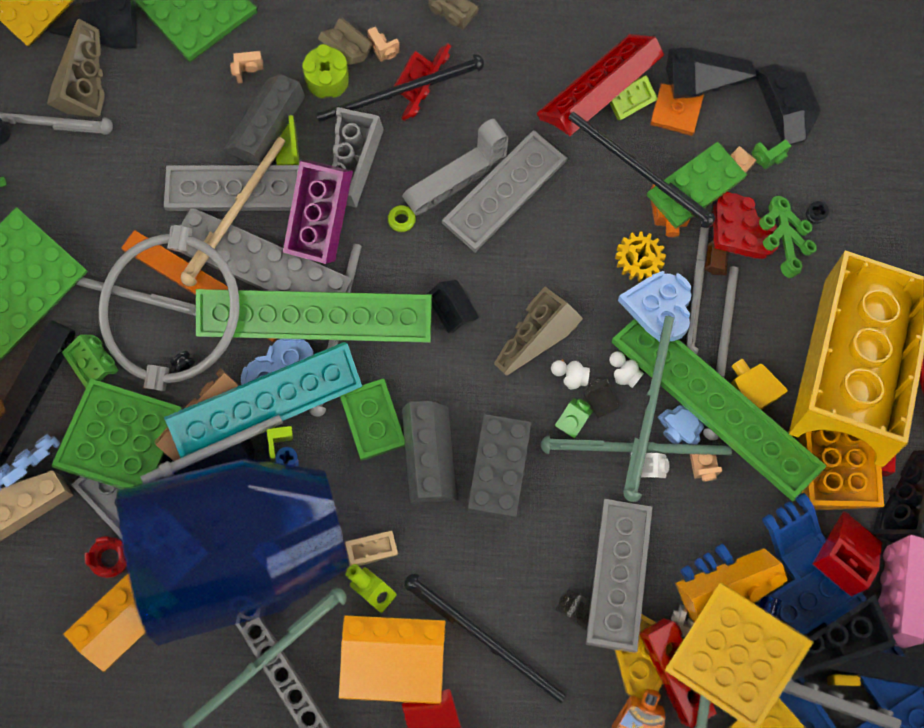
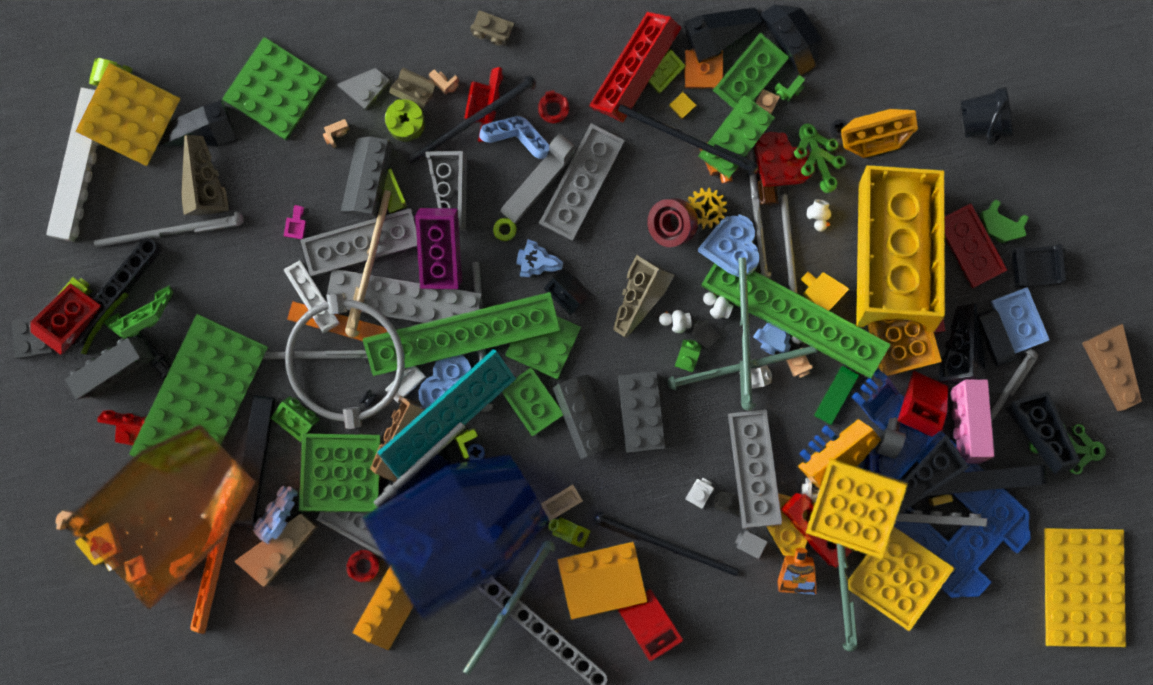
camera: 15 degrees left, 10 degrees up
(156, 224) = (310, 295): none -> white tile
(166, 150) = (295, 226): none -> dark pink plate
(235, 356) = (411, 379): none -> white tile
(294, 29) = (365, 87): none -> light grey wing
(408, 365) = (547, 351): none -> bright green plate
(427, 261) = (536, 260): none -> light blue rock
(446, 111) = (518, 127): none -> light blue beam
(496, 93) = (551, 97): none -> red piece
(544, 585) = (700, 492): none -> white bracket
(584, 251) = (660, 224): none -> dark red piece
(590, 668) = (750, 544): none -> light grey brick
(642, 140) = (682, 105): none -> yellow tile
(731, 122) = (751, 71): none -> bright green plate
(741, 514) = (836, 395): none -> green tile
(773, 295) = (821, 213): none -> white animal
(800, 586) = (892, 440): none -> dark grey beam
(865, 227) = (879, 132): none -> light orange wedge

